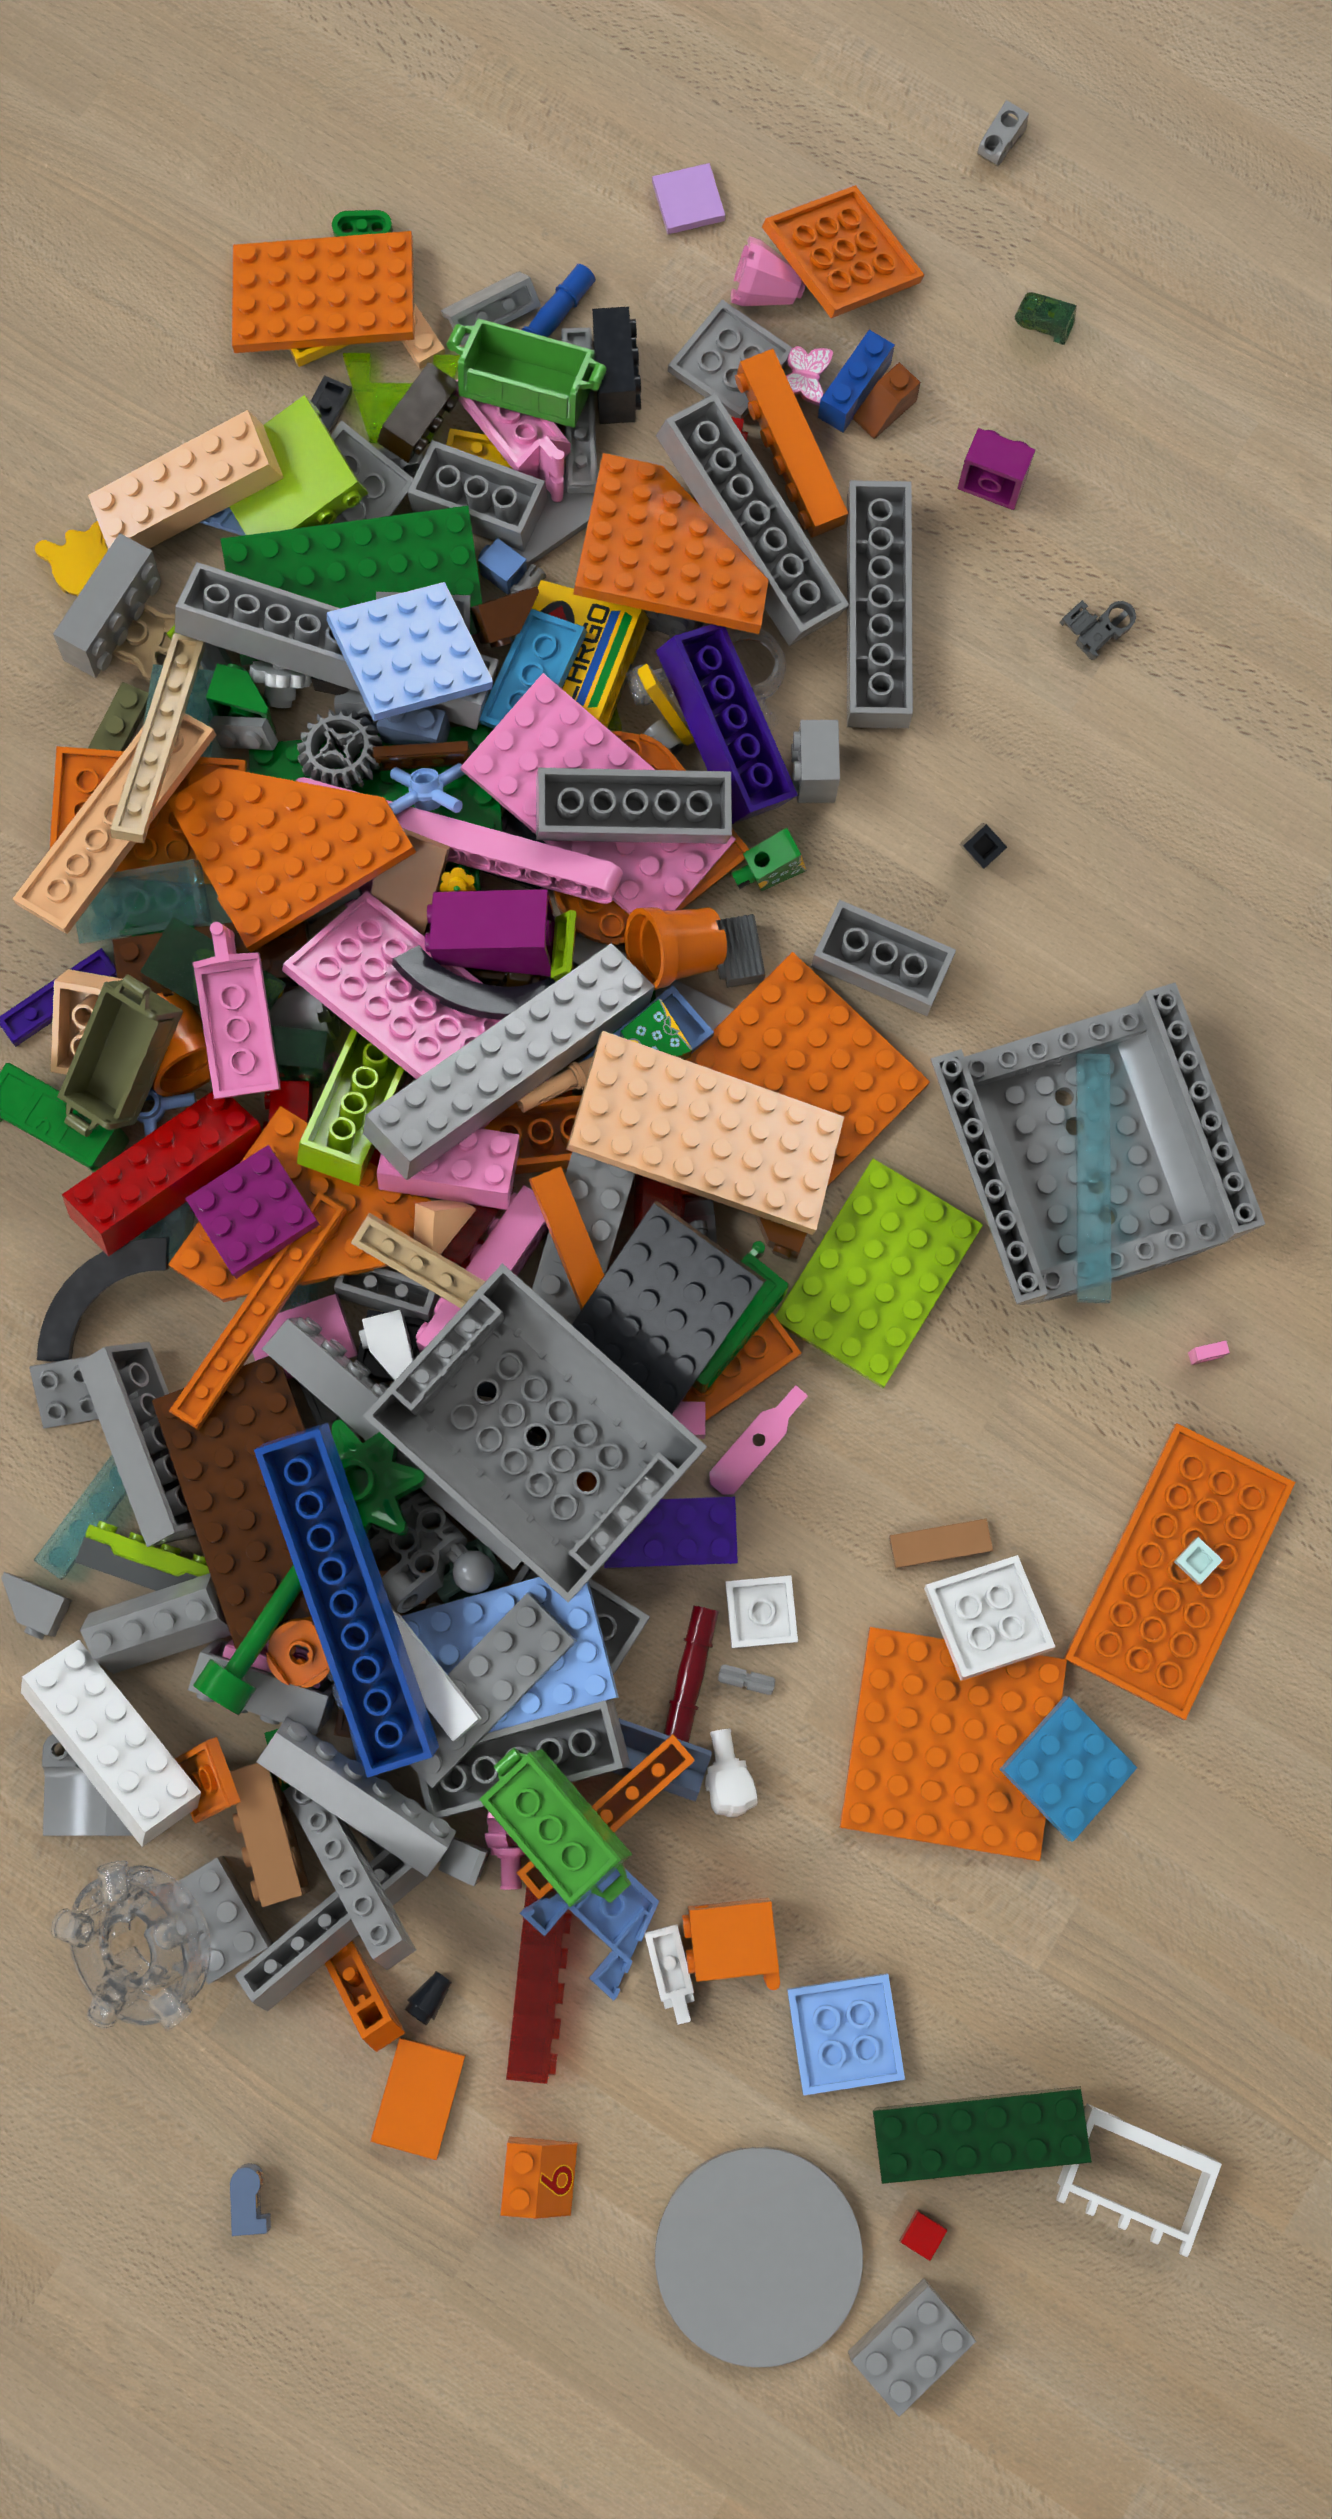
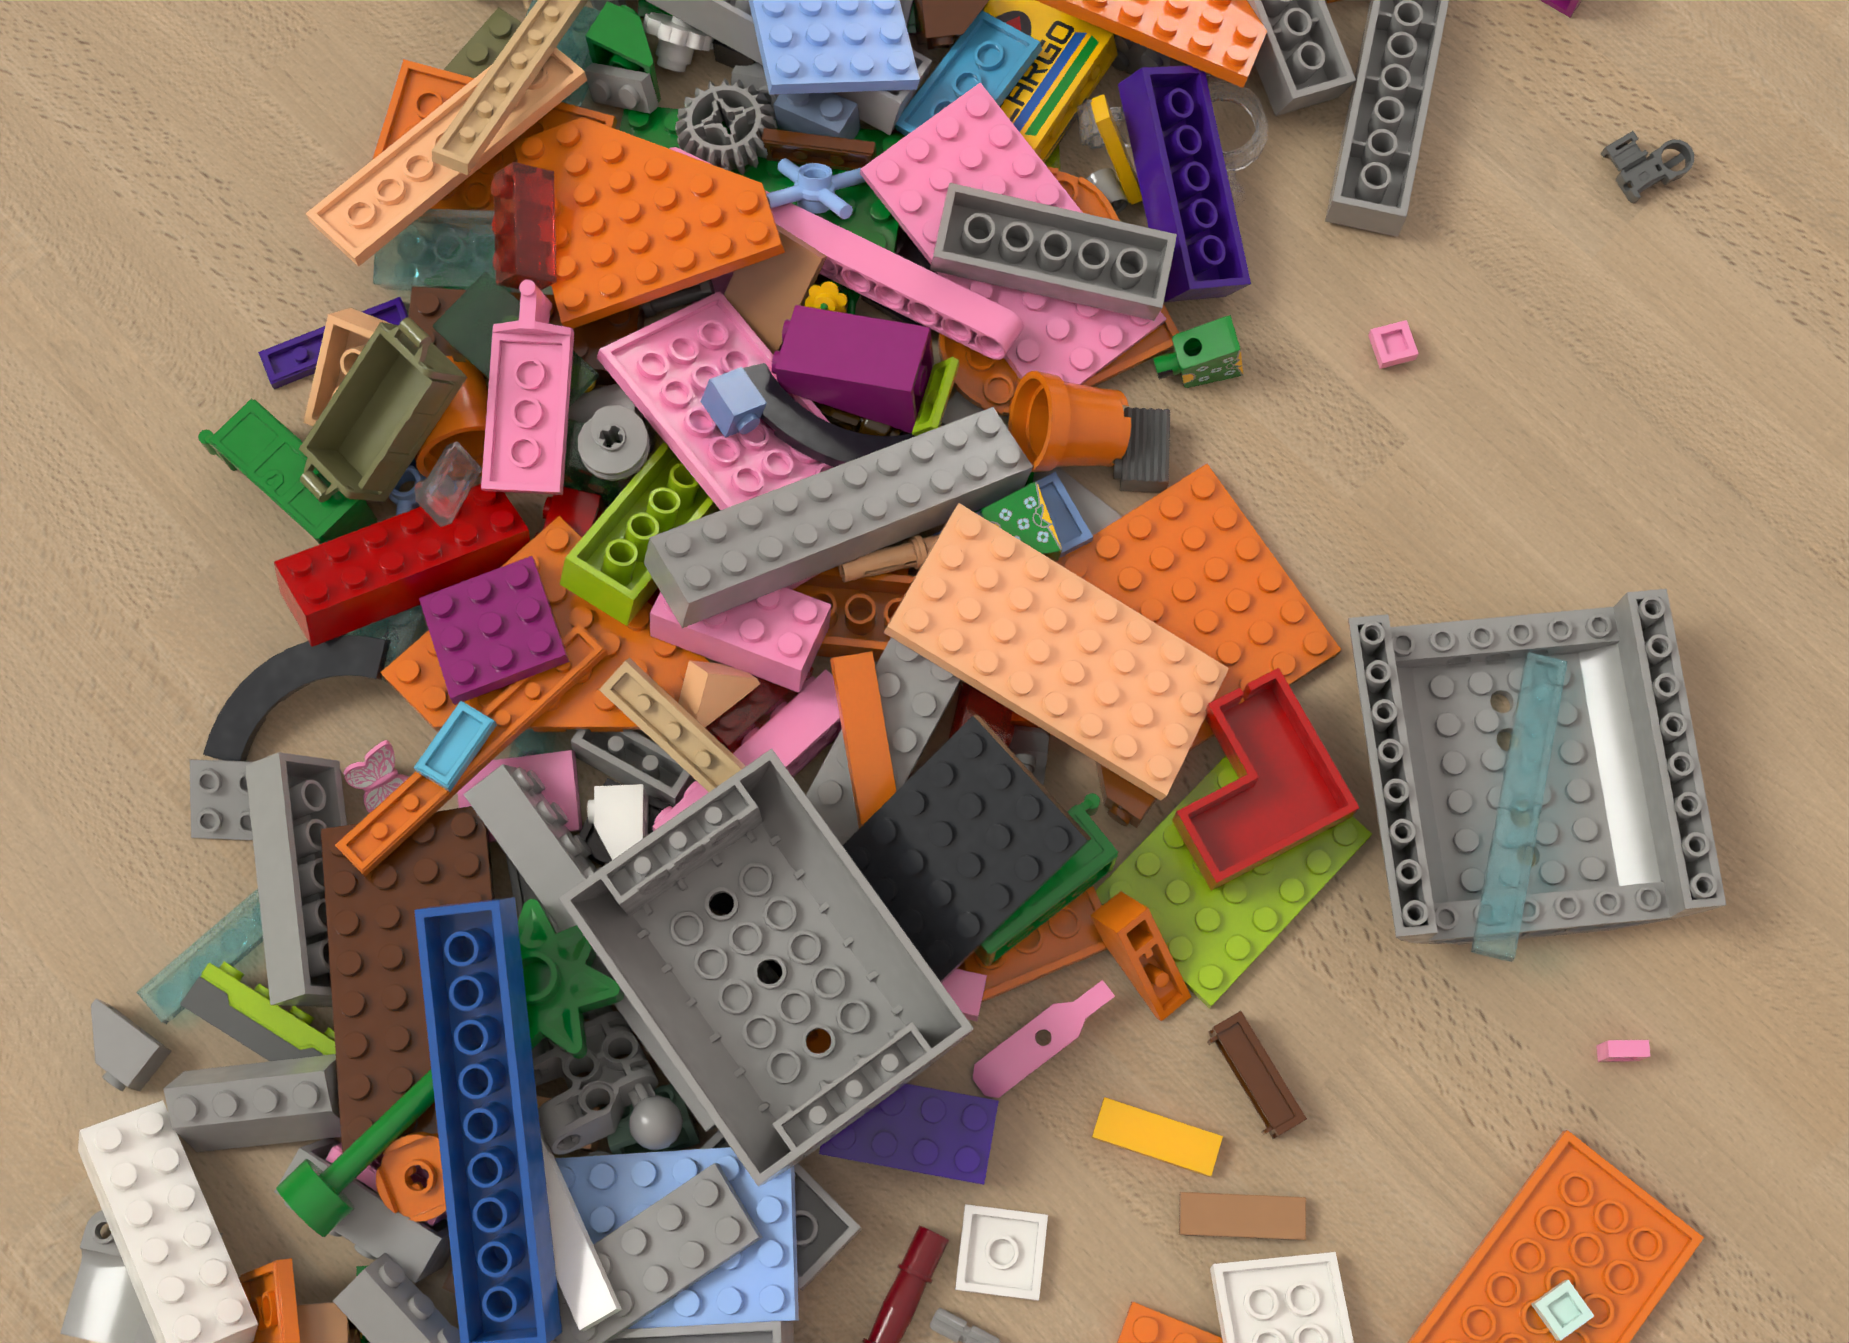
camera: 15 degrees right, 5 degrees down
(184, 1349) = (375, 775): none -> bright pink animal
(185, 1100) = (447, 484): none -> clear tile
(197, 874) = (524, 226): none -> clear red brick
(245, 1312) = (455, 746): none -> medium azure tile
(302, 1028) = (603, 429): none -> light grey piece
(402, 985) = (733, 402): none -> medium blue brick
(816, 761) = (1280, 249): light grey brick -> none
(821, 1357) = (1141, 953): none -> orange slope
(863, 1497) = (1157, 1137): none -> yellow tile
(883, 957) = (1314, 492): light grey brick -> none
(906, 1198) = (1283, 789): none -> red piece
(922, 820) = (1393, 344): none -> bright pink plate
(930, 1432) = (1257, 1075): none -> reddish brown container
(983, 845) = (1460, 386): black brick -> none

